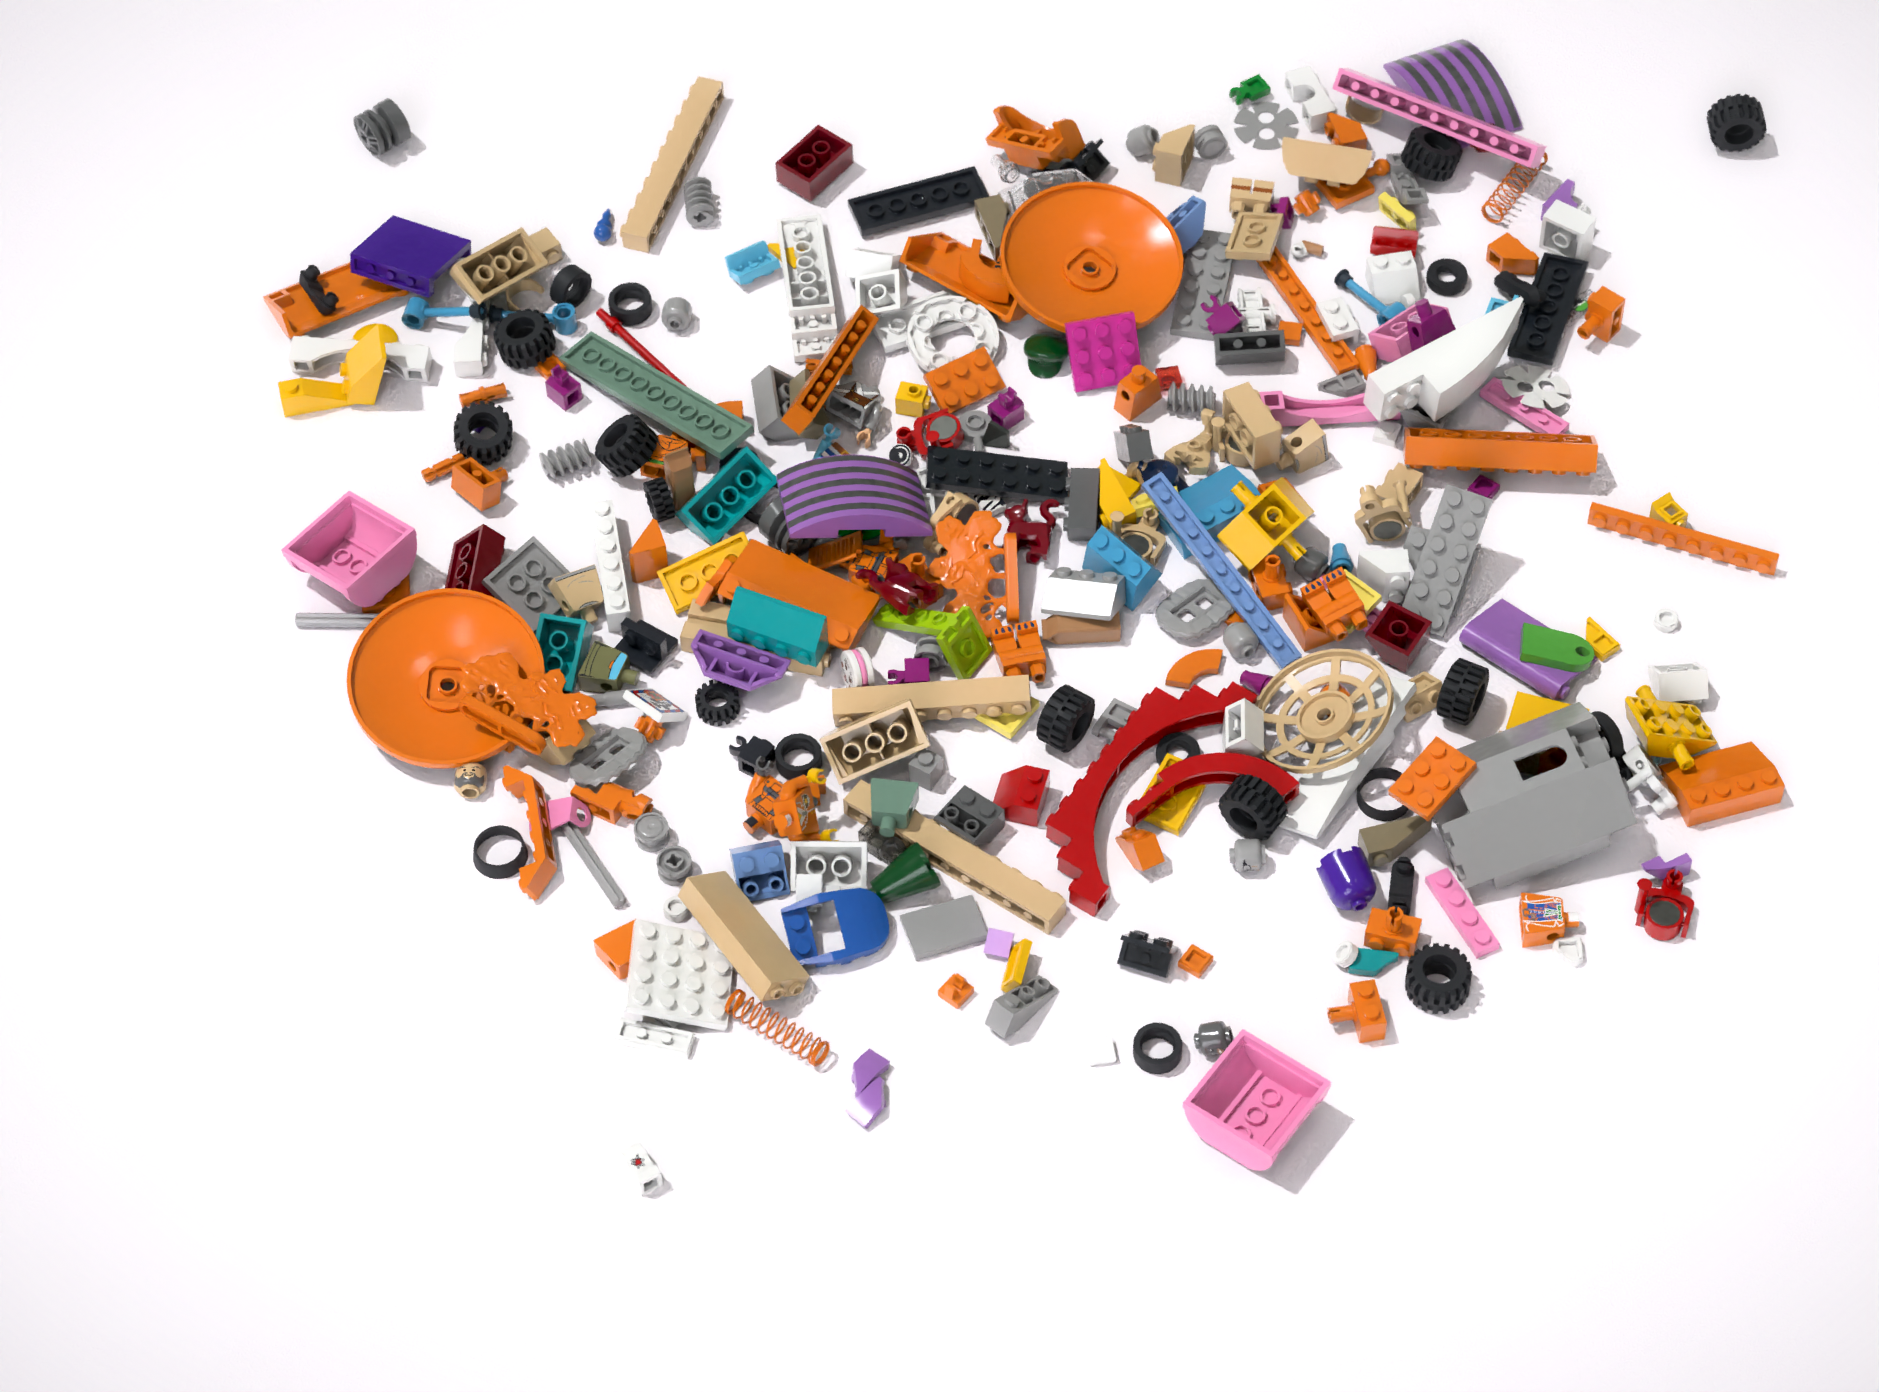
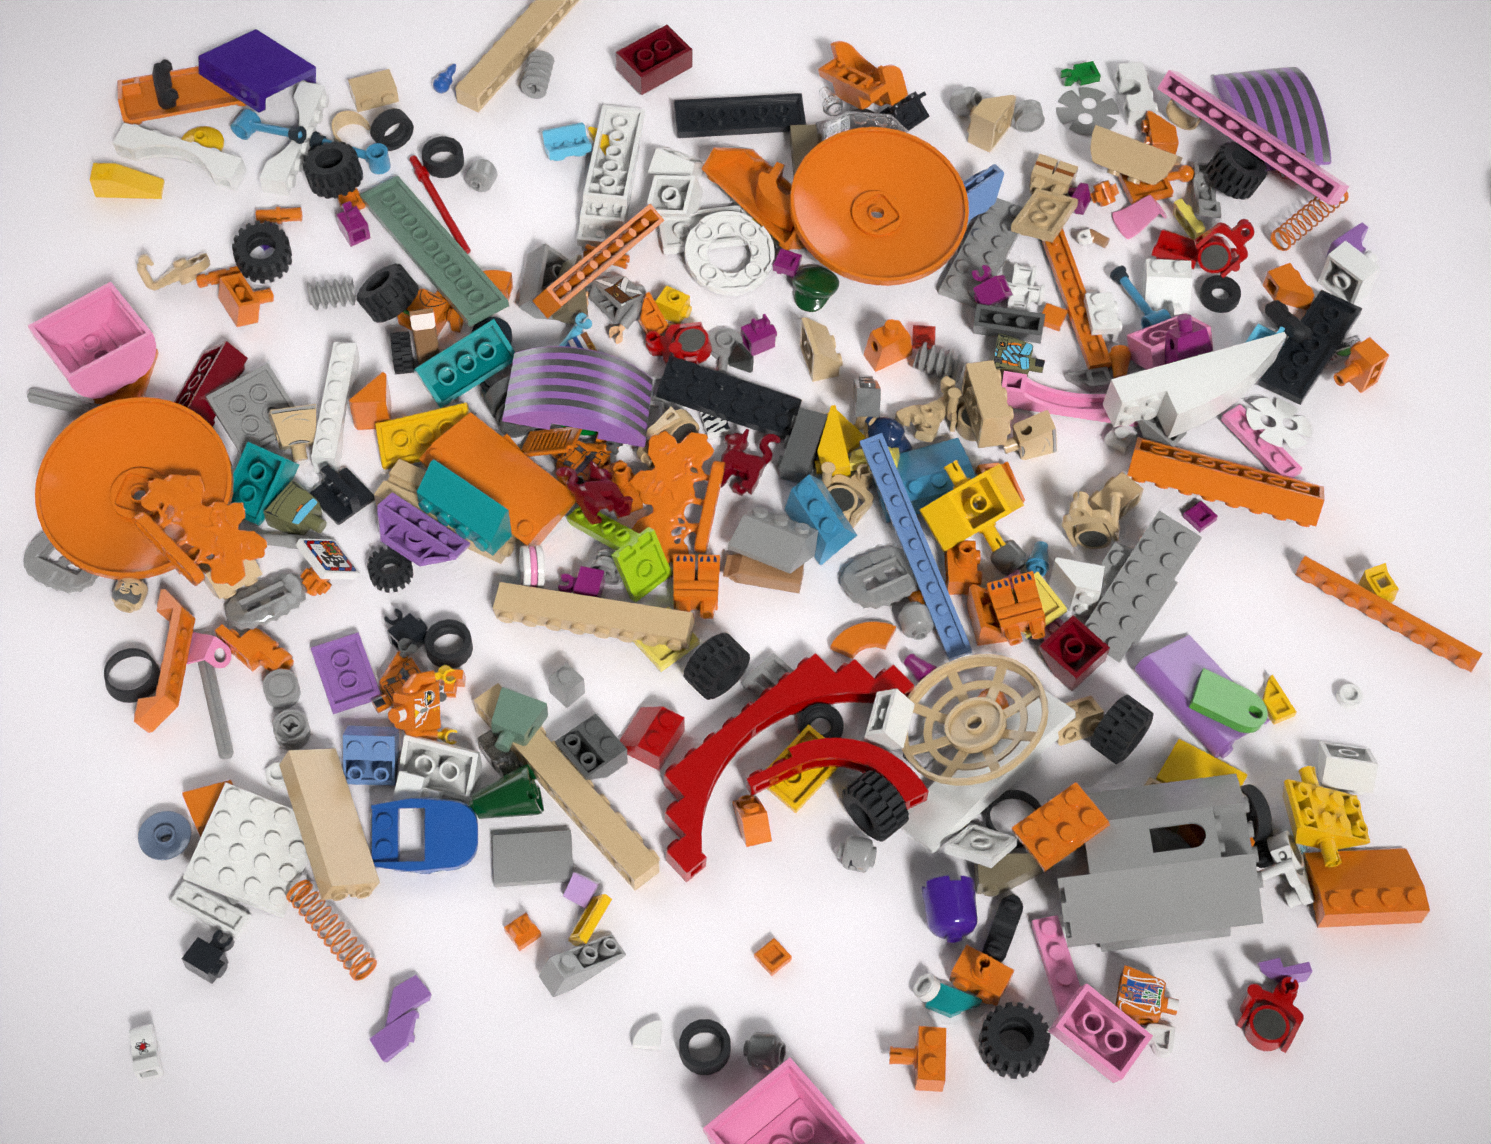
camera: 10 degrees right, 5 degrees up
(364, 368) = (173, 167): yellow slope -> none
(388, 778) = (54, 574): none -> light grey piece
(407, 469) = (183, 270): none -> tan animal
(498, 266) = (326, 96): tan windscreen -> none
(588, 974) = (160, 826): none -> sand blue dish
(669, 1077) = (207, 958): none -> black brick
(708, 804) = (345, 673): none -> medium lavender plate
(715, 582) = (415, 452): orange tile -> none
(874, 741) = (521, 646): tan windscreen -> none
(894, 414) = (651, 317): none -> orange tile
(901, 454) = (645, 359): black tile -> none
(964, 381) = (727, 298): orange plate -> none
(1012, 335) = (787, 262): none -> magenta tile
(1070, 412) = (819, 350): none -> tan slope
(1102, 350) = (865, 296): dark pink plate -> none
(1147, 954) = (725, 937): black bracket -> none
(1265, 375) = (1015, 356): none -> torso
(1345, 219) = (1137, 216): none -> bright pink piece
(1360, 821) = (981, 845): none -> white tile
(1431, 236) = (1215, 252): none -> red piece
(1515, 953) = (1100, 1033): none -> bright pink brick

